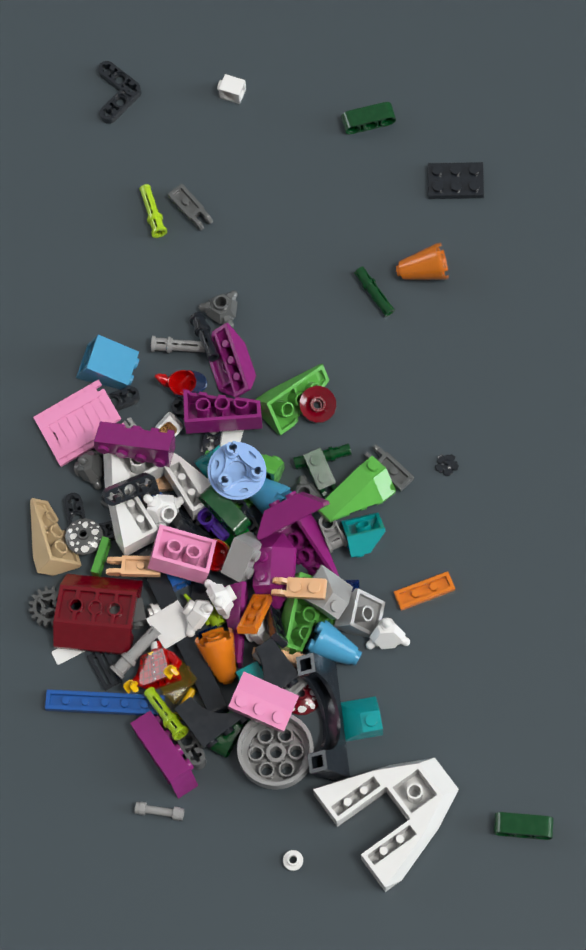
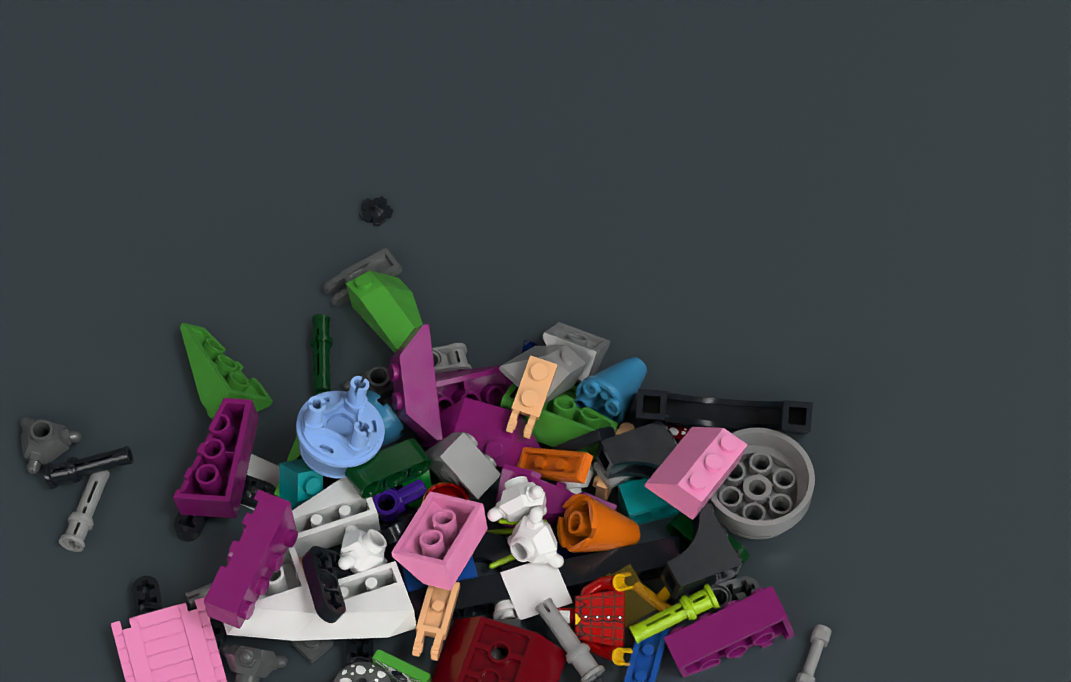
camera: 85 degrees left, 10 degrees down
(108, 362) = (81, 610): dark azure slope -> none
(170, 422) = (215, 543): white rock -> none
(184, 380) = (155, 503): red hair -> none
(234, 368) = (156, 440): magenta wedge -> none
(293, 866) = (912, 507): white plate -> none
(320, 471) = (350, 357): hinge -> none
(325, 399) = (241, 342): dark red dish -> none
(361, 719) = (725, 373): teal slope -> none
(363, 533) = (456, 319): teal slope -> none
(370, 285) = (86, 243): dark green pin -> none
(387, 635) = (611, 323): white rock -> none
(419, 791) = (853, 327): white piece -> none
(424, 265) = (70, 168): orange cone -> none
(424, 591) = (555, 272): orange tile -> none
(523, 826) = (910, 220): dark green beam -> none

